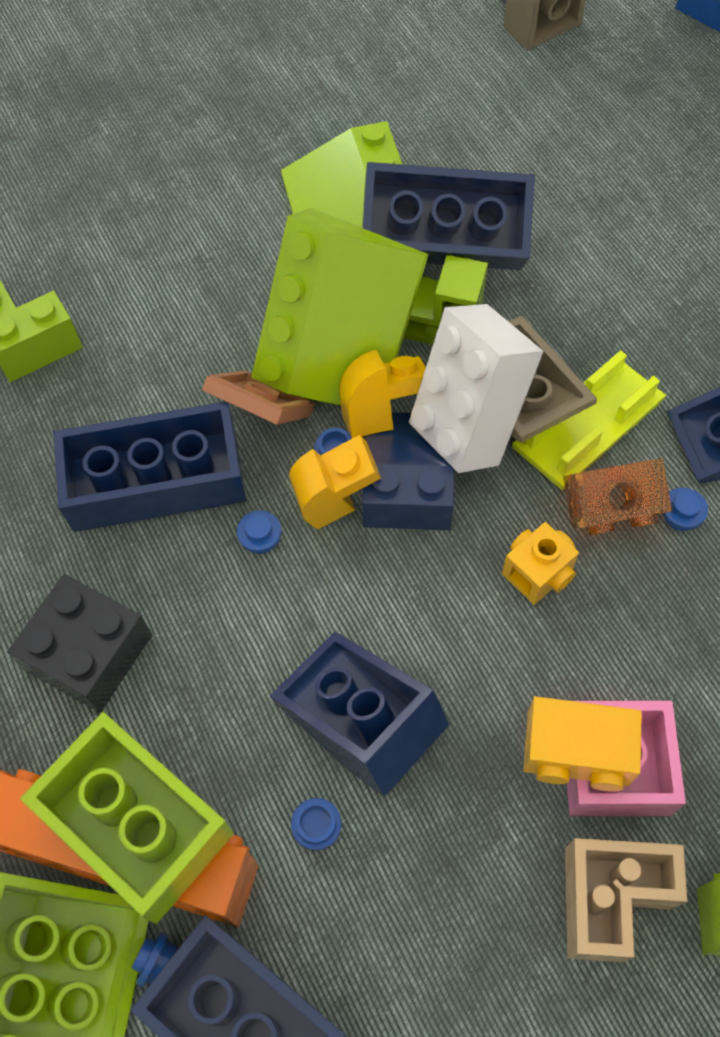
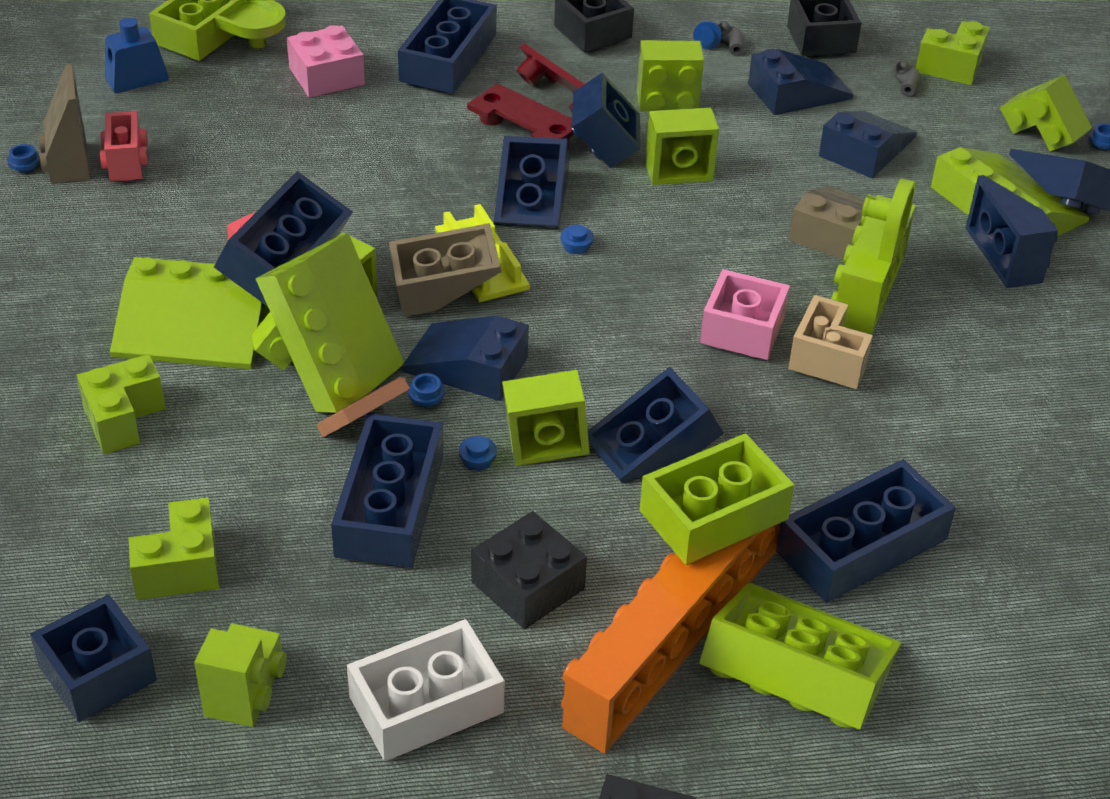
camera: 75 degrees left, 20 degrees down
(153, 958) = (794, 581): blue plate -> none
(199, 196) = (117, 396): none -> lime brick
(305, 577) = (546, 417): none -> lime brick
(328, 480) = (470, 383): yellow brick -> none
(371, 385) = (402, 338): yellow brick -> none
(474, 386) = (452, 269): white brick -> none
(540, 562) = (588, 308): yellow brick -> none
(569, 43) = (123, 146): none -> coral brick
(583, 743) = (739, 304): yellow brick -> none
(643, 488) = (554, 257): clear orange brick -> none

